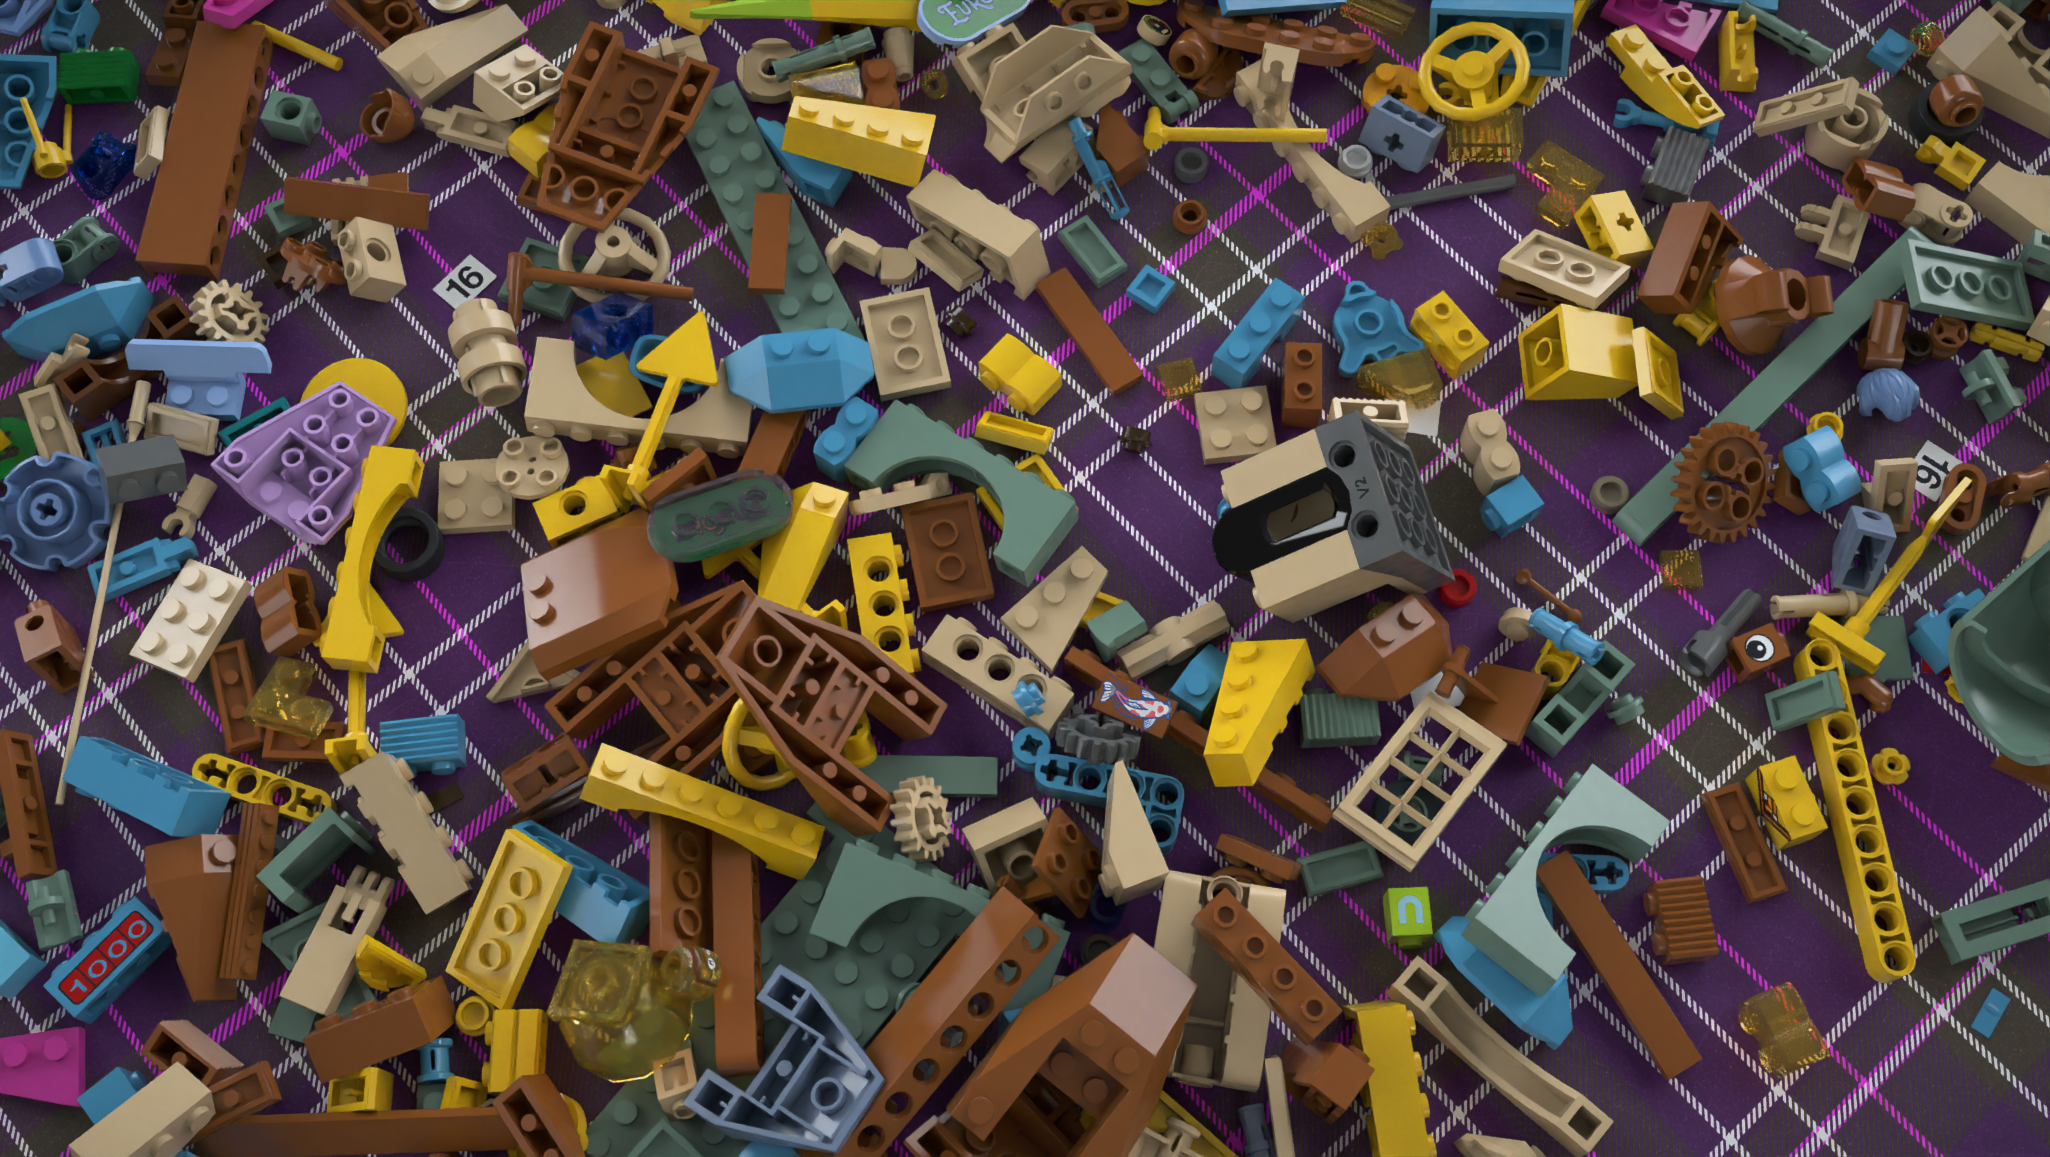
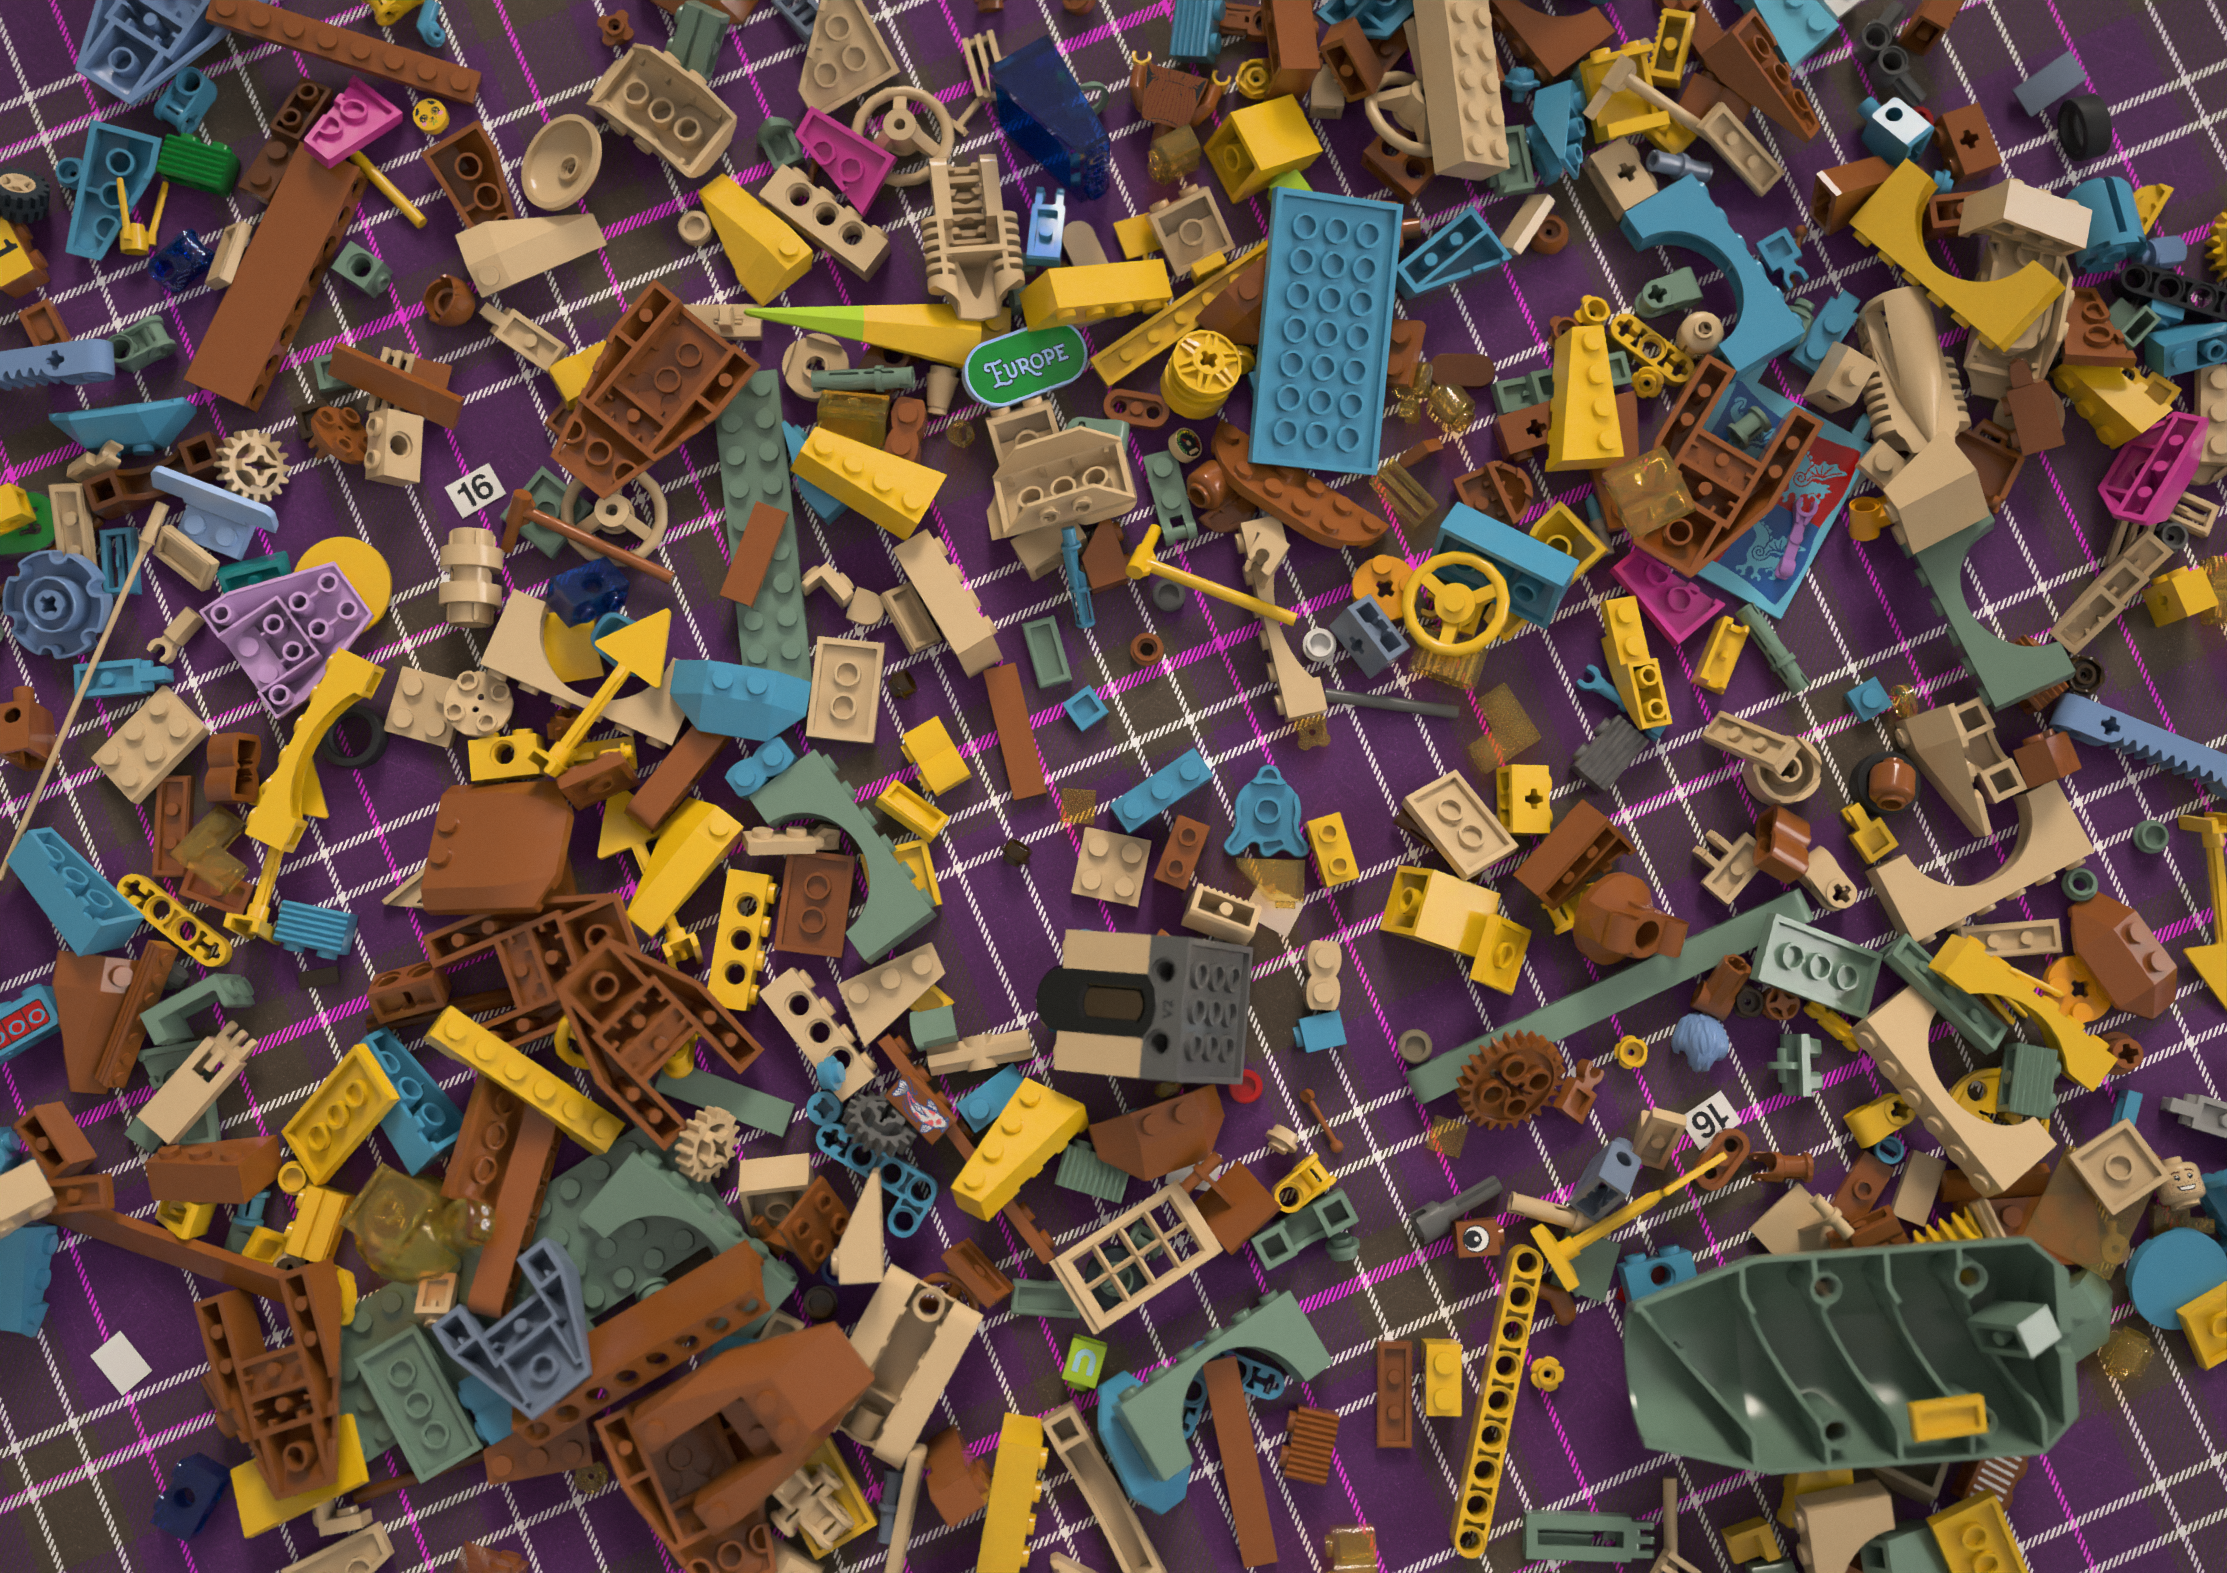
camera: 15 degrees right, 15 degrees up
(141, 469) = (137, 596): dark grey piece -> none
(384, 967) = (228, 1114): yellow plate -> none
(409, 830) = (278, 1008): tan wedge -> none
(515, 84) = (575, 313): tan slope -> none
(719, 515) = (620, 818): tile -> none
(1266, 966) = (934, 1385): dark orange brick -> none
(1566, 636) = (1311, 1175): dark azure pin -> none
(1805, 701) = (1494, 1298): sand green tile -> none
(1822, 469) = (1606, 1094): dark azure brick -> none

